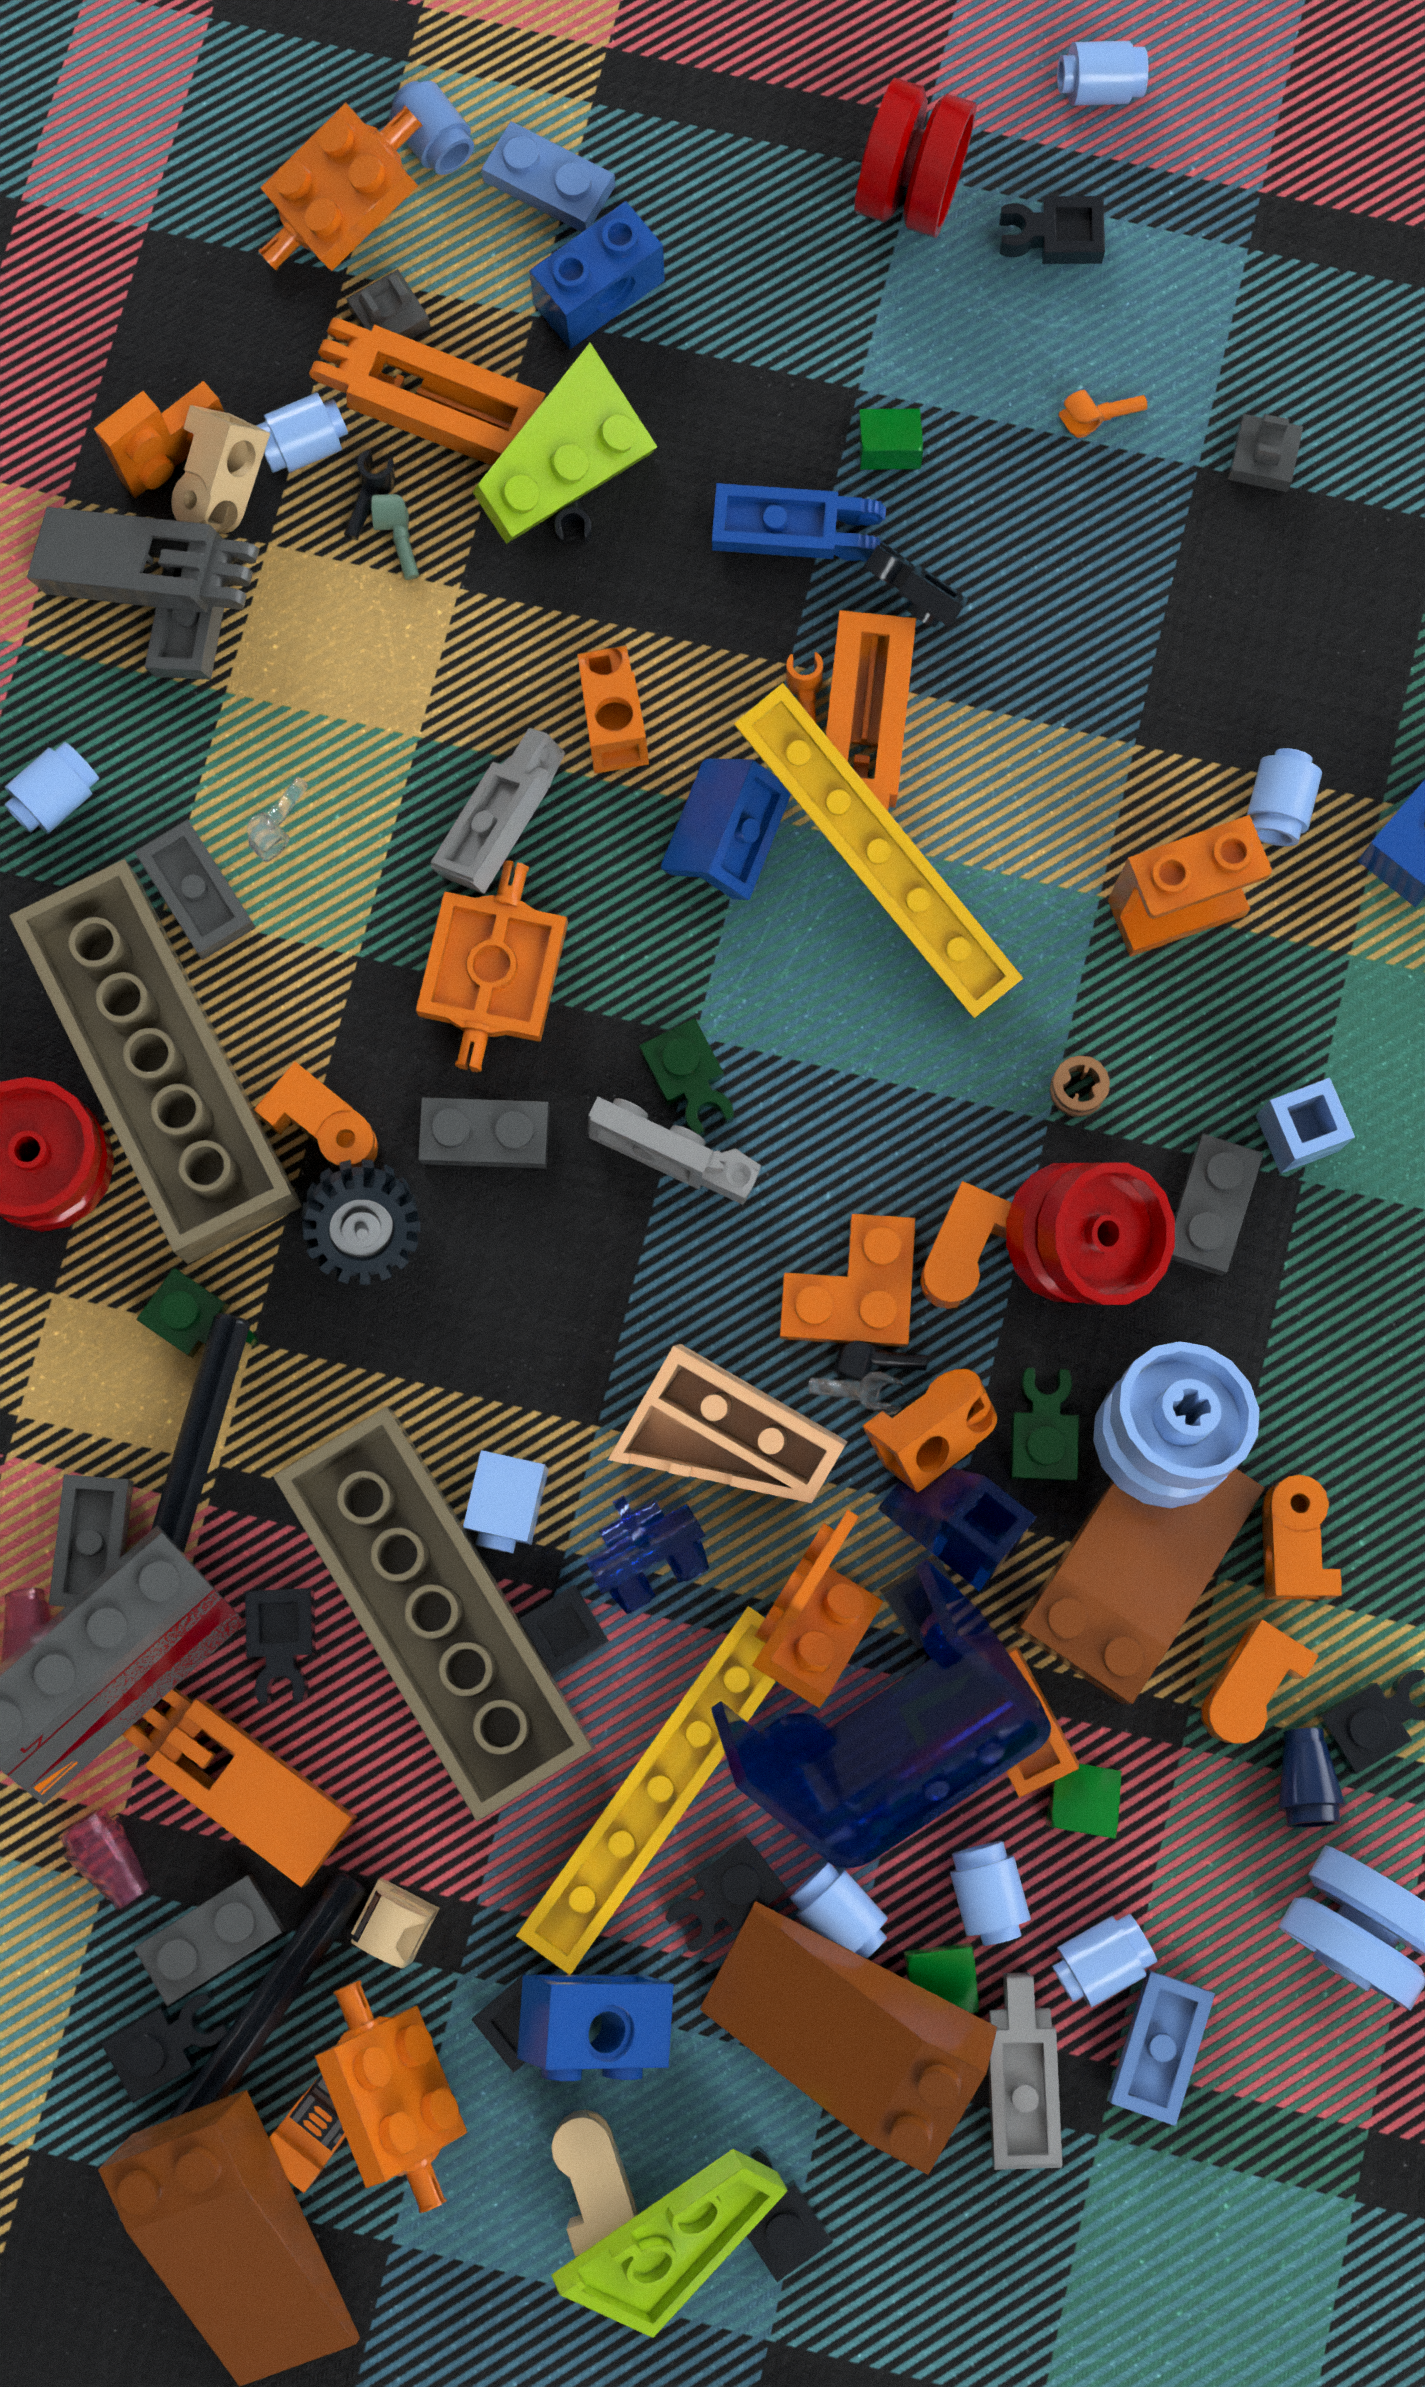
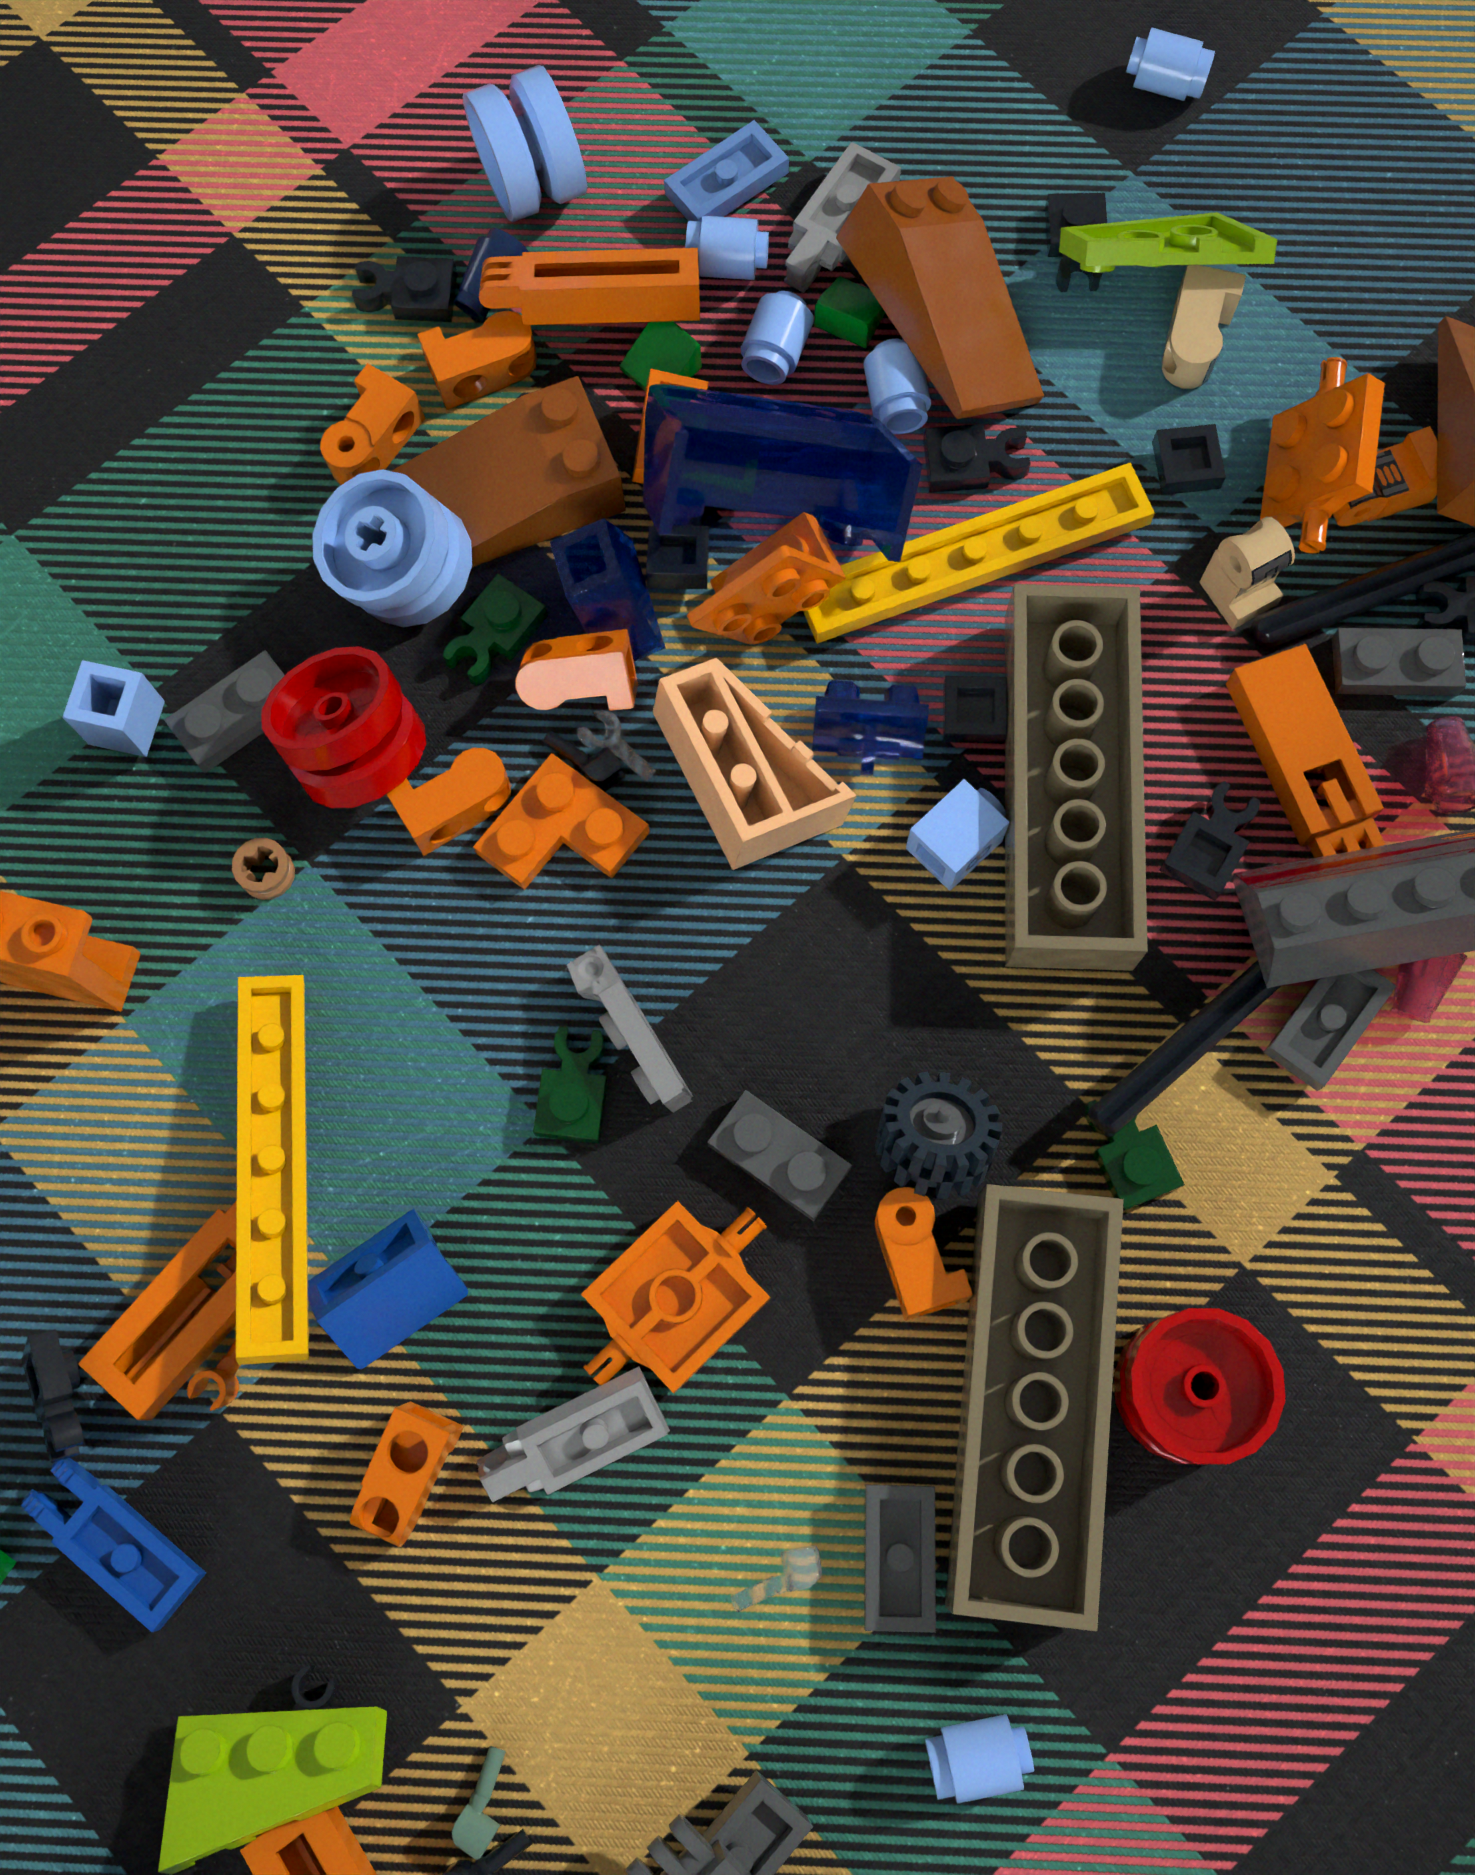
camera: 145 degrees left, 5 degrees down
(558, 2019) = (1133, 412): blue brick -> none
(1165, 1835) = (595, 286): none -> orange hinge

